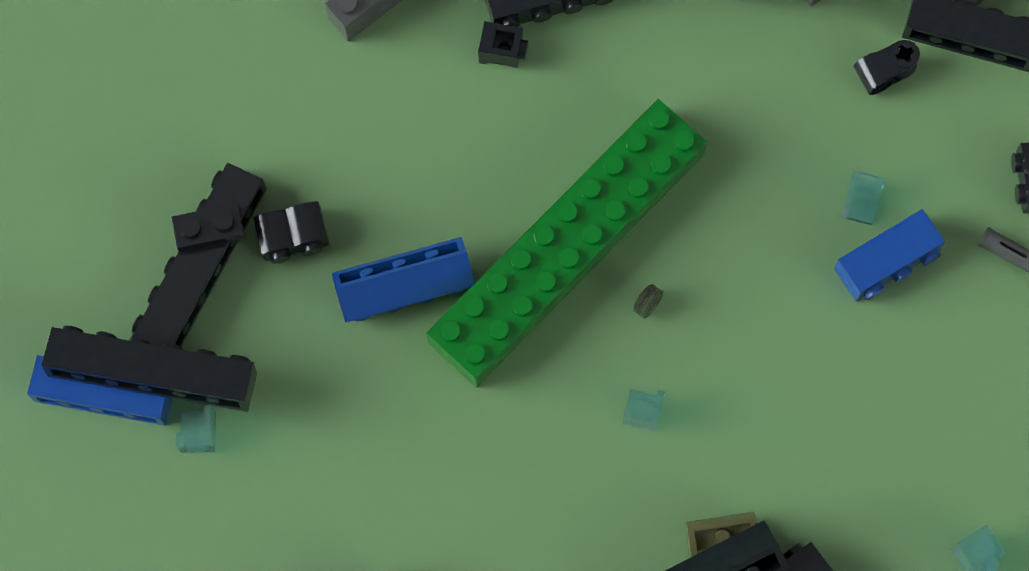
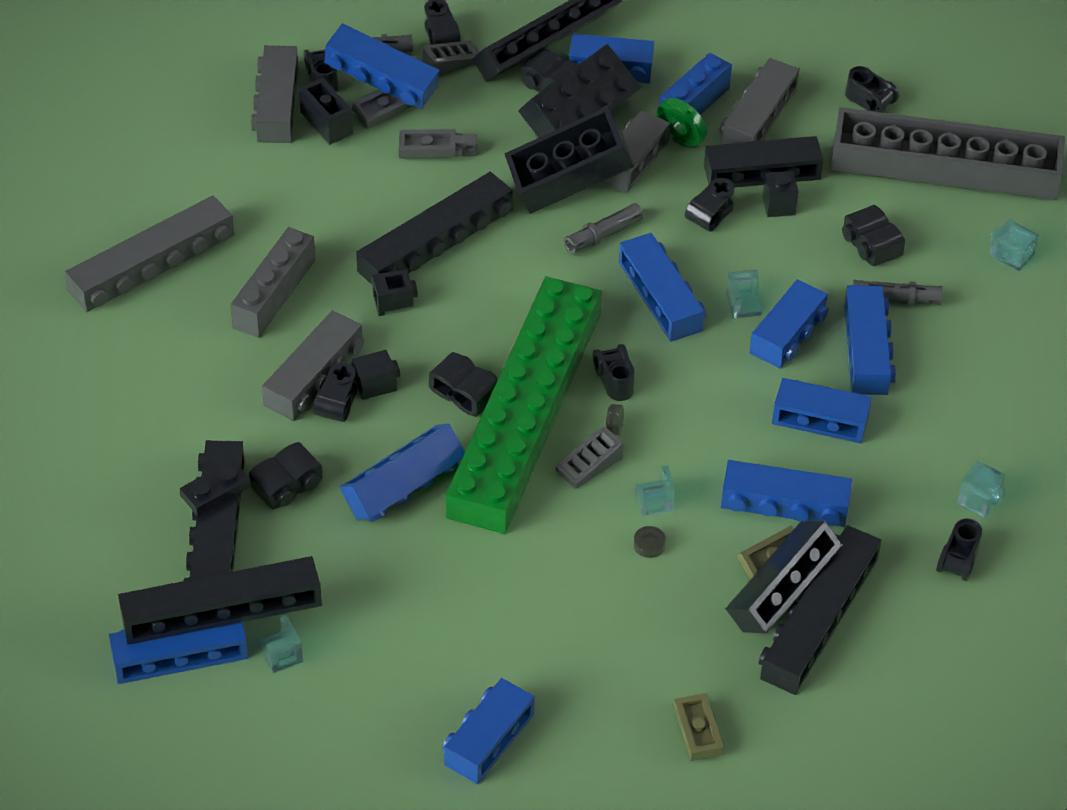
camera: 30 degrees left, 25 degrees down
(380, 105) = (305, 370): none -> dark grey brick
(383, 155) = (337, 393): none -> black piece
(435, 142) = (375, 374): none -> black brick
(518, 191) = (462, 383): none -> black brick
(610, 321) = (604, 444): none -> dark grey slope
(611, 462) = (649, 541): none -> clear smoke tile
(679, 234) = (615, 372): none -> black piece
(747, 50) = (594, 232): none -> dark grey pin
(775, 468) = (786, 493): none -> blue brick
(780, 151) = (661, 287): none -> blue brick
(866, 379) = (821, 410): none -> blue brick
(962, 311) = (868, 340): none -> blue brick
(968, 82) = (780, 194): none -> black brick

